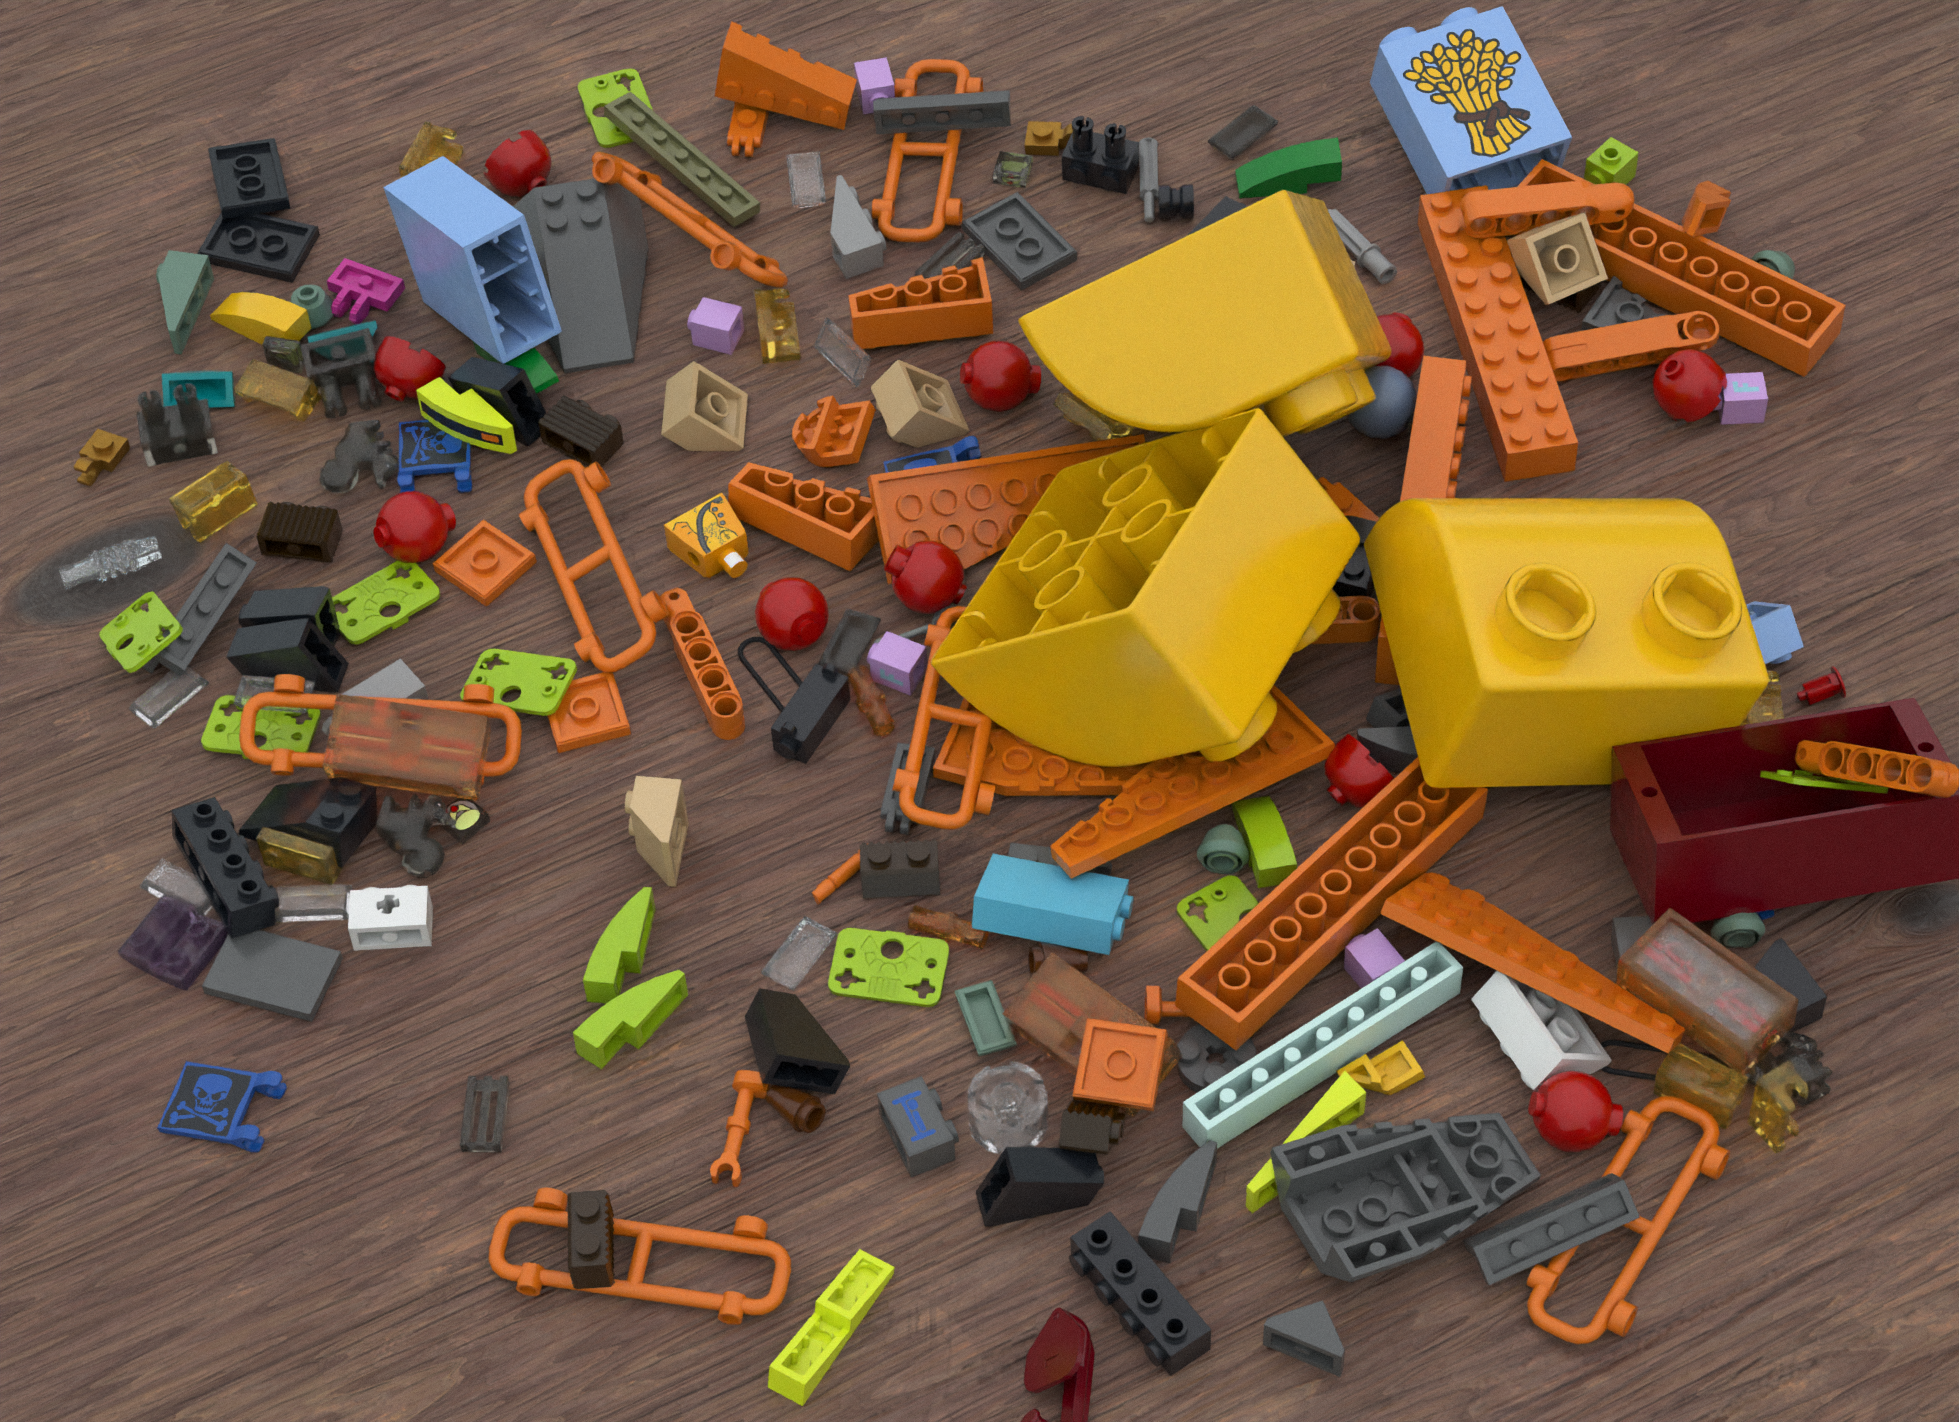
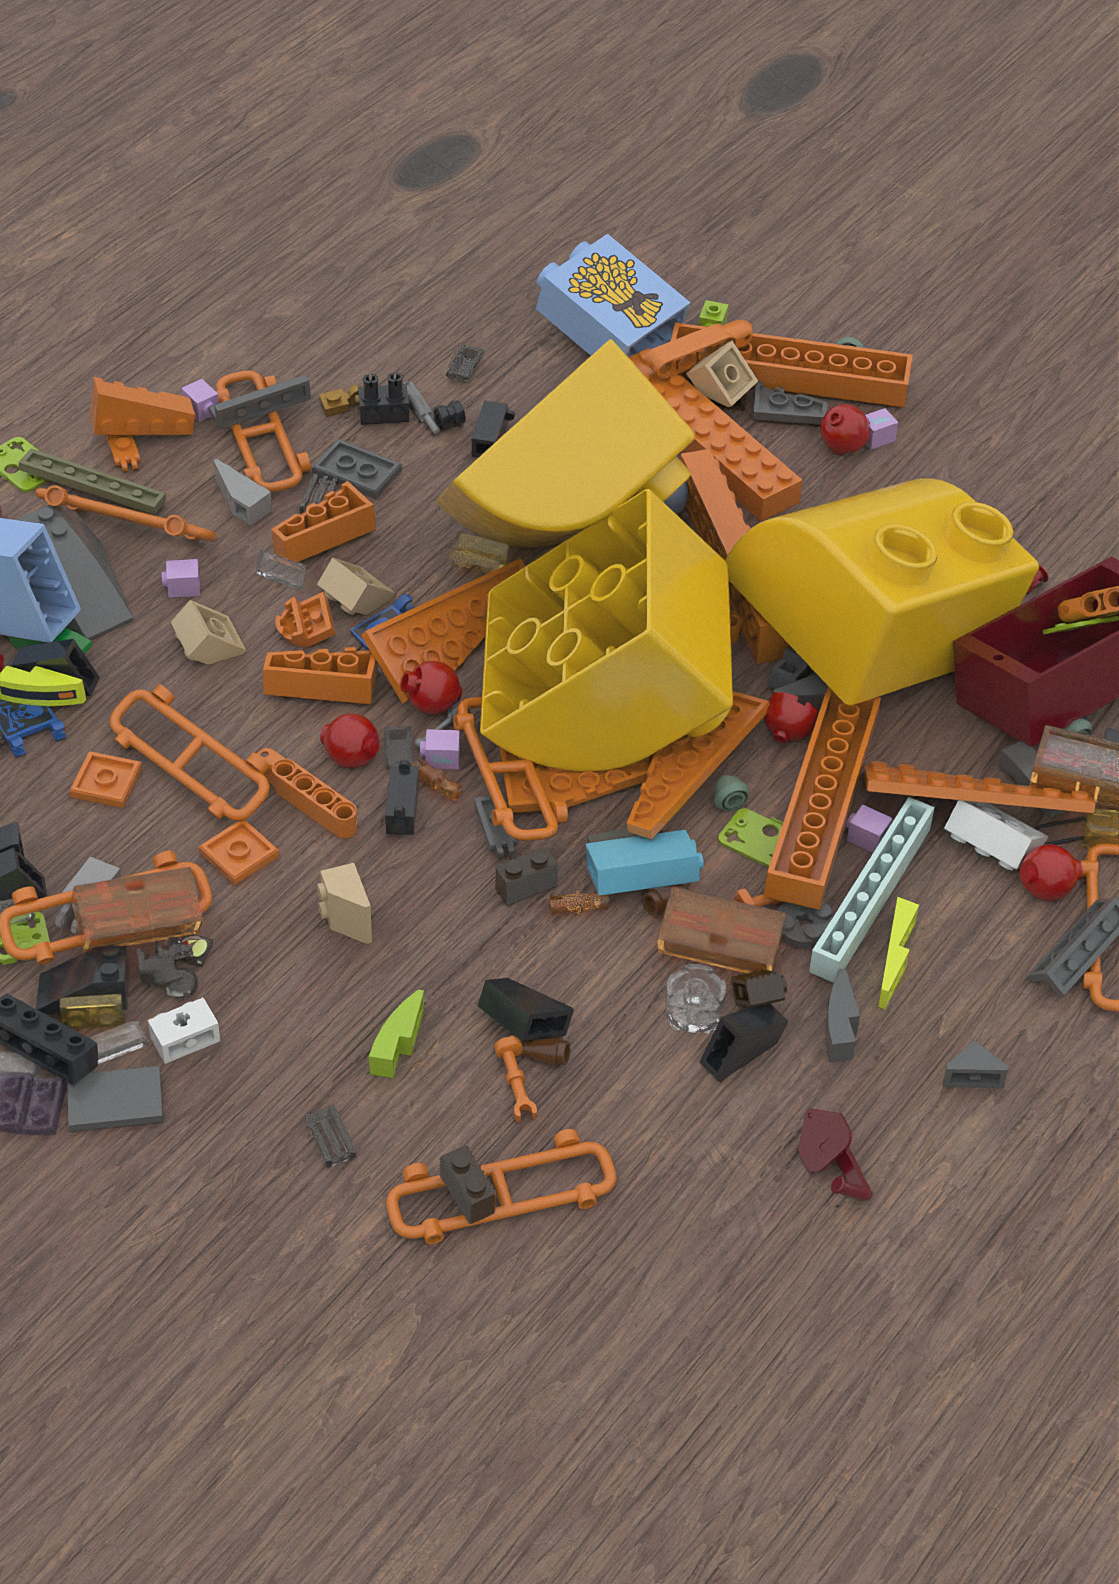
camera: 30 degrees left, 5 degrees down
(213, 1102) = (126, 1201): flag -> none
(380, 590) = (37, 823): lime axle -> none
(413, 526) = (43, 770): red brick -> none
(525, 673) = (183, 839): lime axle -> none
(581, 432) = (126, 673): dark brown brick -> none
(620, 948) = (364, 994): lime slope -> none
(709, 538) = (262, 712): light orange torso -> none
(755, 674) = (349, 792): black piece -> none
(777, 326) = (223, 568): clear yellow hinge -> none
(799, 953) = (487, 954): clear tile -> none
(806, 179) = (187, 471): clear tile -> none
(826, 1332) = (658, 1184): neon yellow slope -> none
(837, 878) = (484, 894): orange wheel -> none
(886, 977) = (554, 949): lime axle -> none
(917, 1126) = (638, 1033): dark grey brick -> none
(985, 1018) = (639, 950): sand green tile -> none
(999, 376) = (400, 552): red brick -> none
(1012, 169) = (324, 427): clear smoke tile -> none
(1120, 1064) = (759, 940): orange tile -> none
(1139, 1294) = (851, 1082): black brick -> none
(1266, 840) = (764, 782): lime slope -> none
(1290, 169) = (512, 375): green slope -> none
(1387, 1071) = (917, 889): yellow slope -> none
(1396, 1191) = (973, 961): dark grey wedge -> none
(1629, 344) = (797, 414): orange piece -> none
(1706, 209) = (790, 324): orange slope -> none

